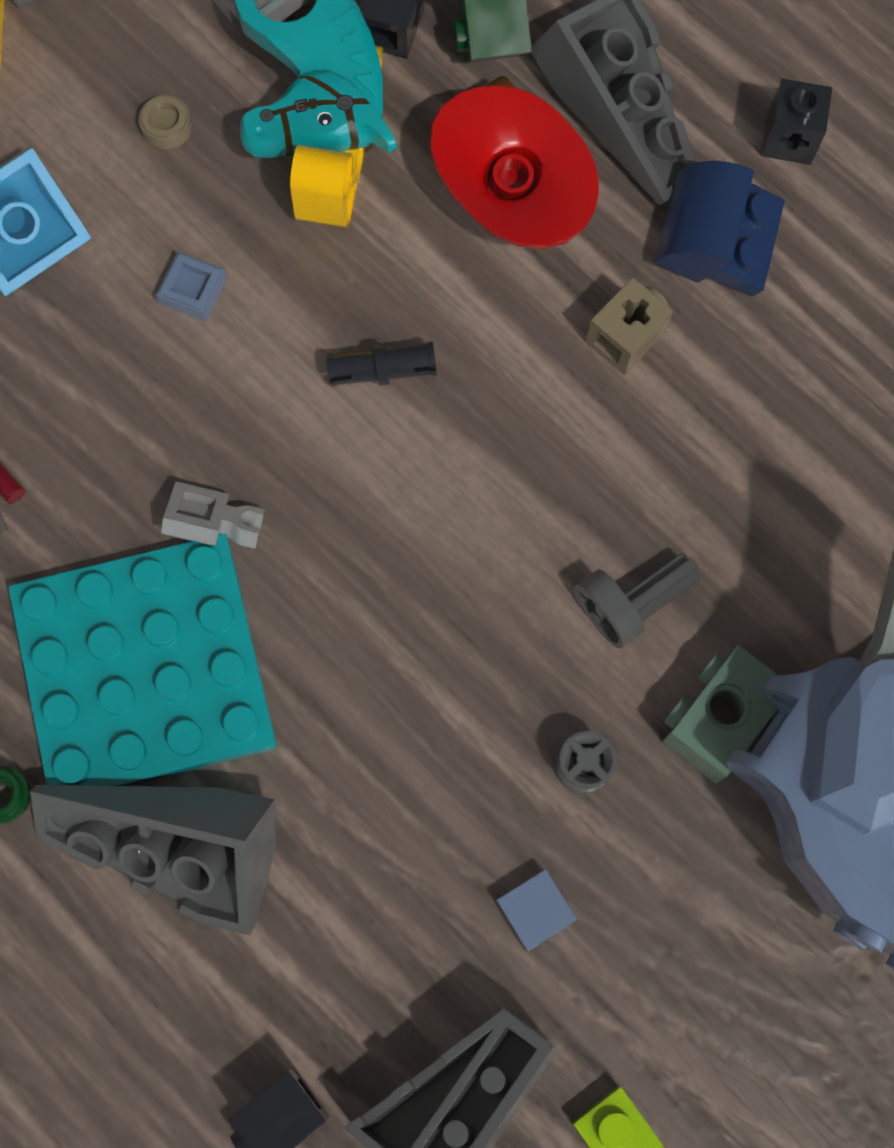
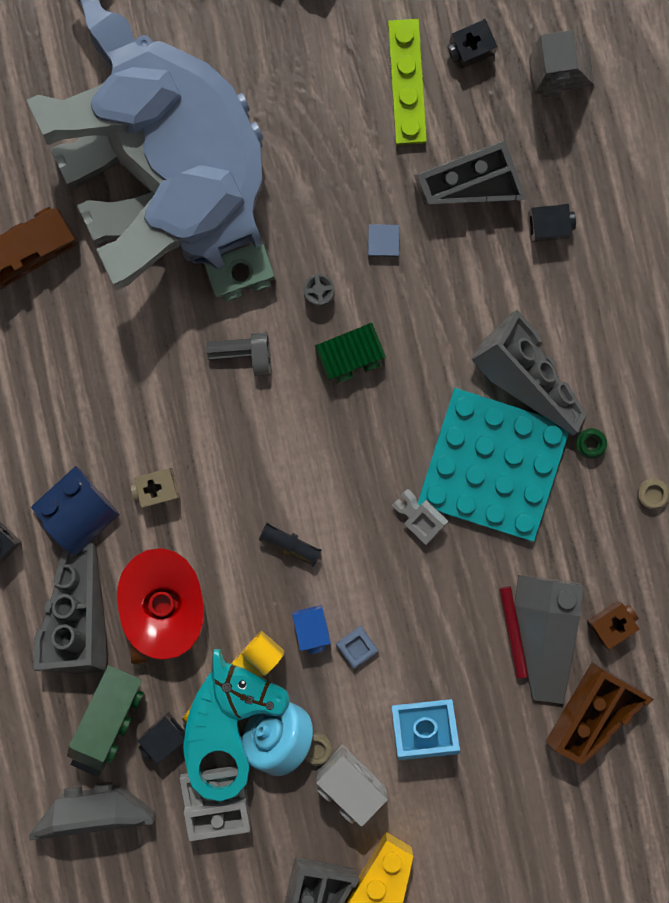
camera: 145 degrees left, 15 degrees up
(79, 84) = (350, 786): none -> light grey brick
(218, 83) = (278, 742): none -> medium azure wheel
(274, 267) = (311, 629): none -> blue brick
(473, 695) = (351, 352): none -> dark green brick

